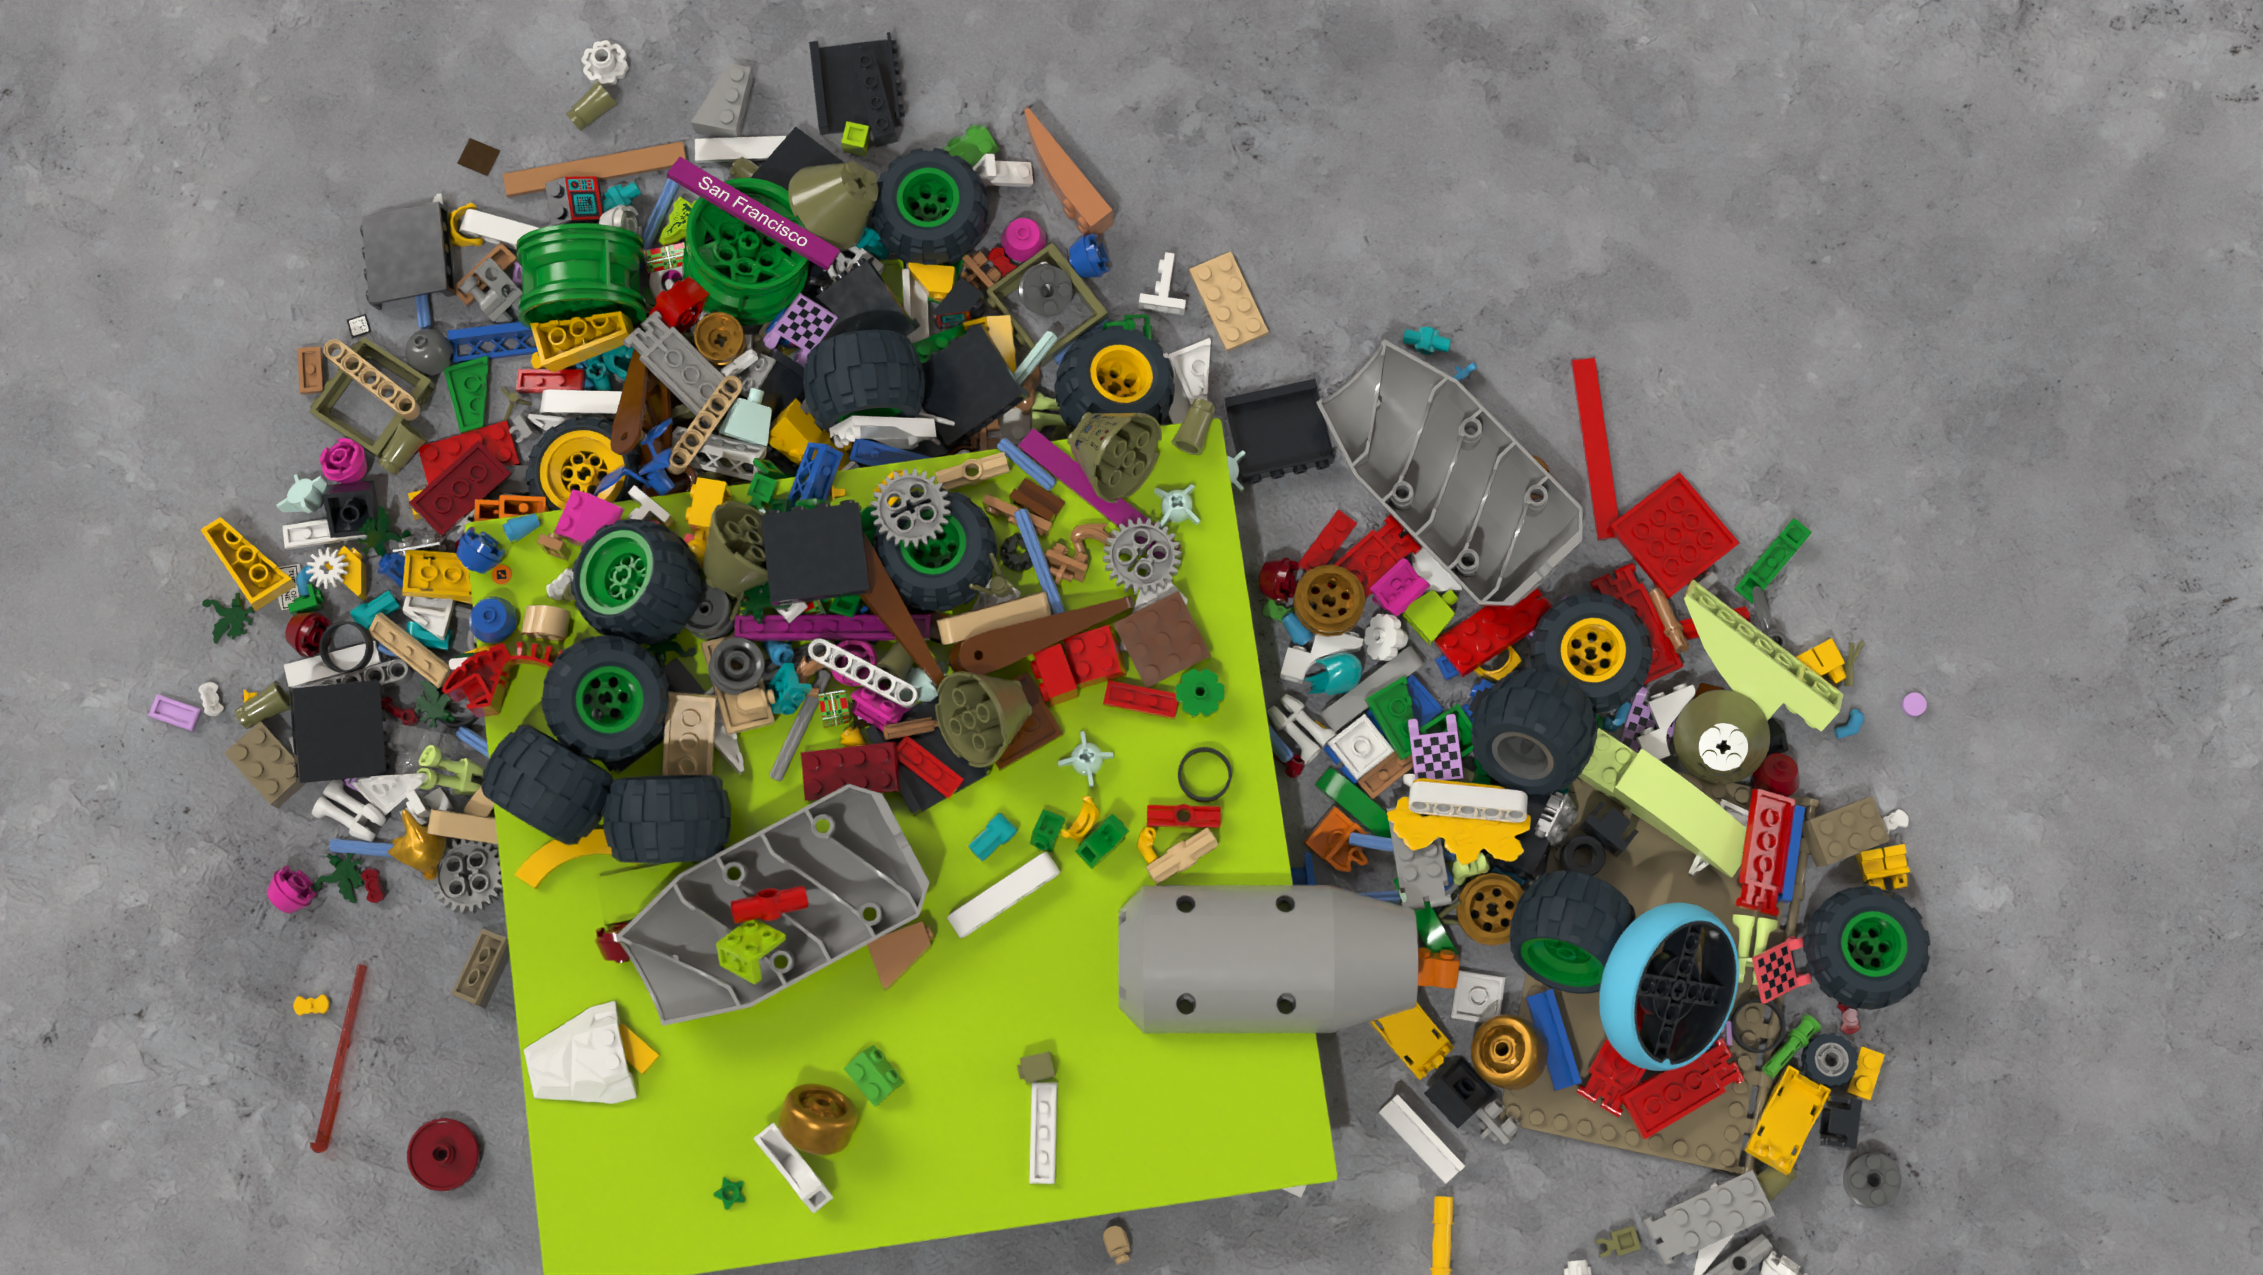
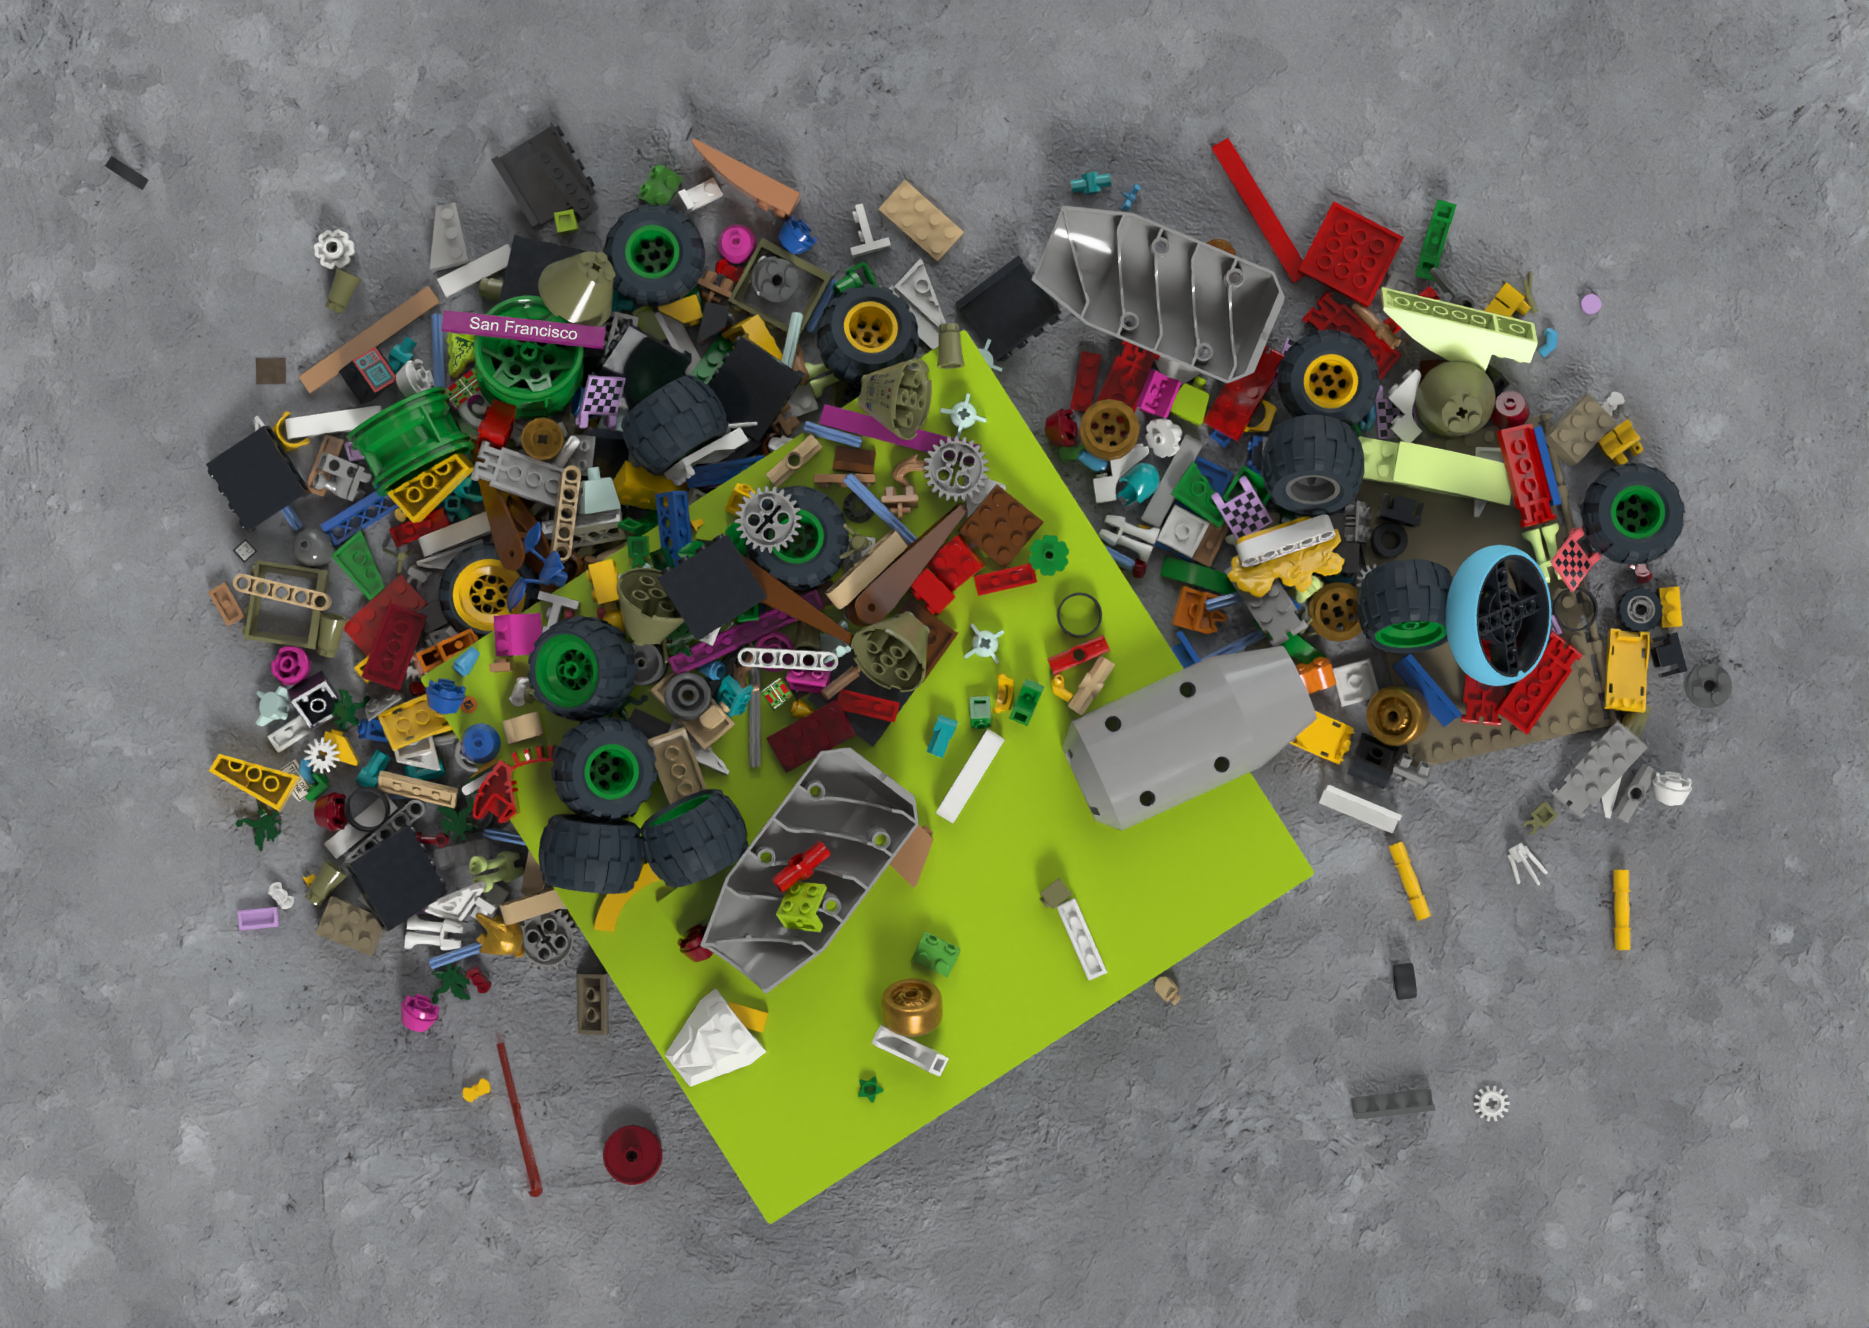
camera: 30 degrees left, 10 degrees up
(1797, 1039) = (1608, 605): bright green pin -> none

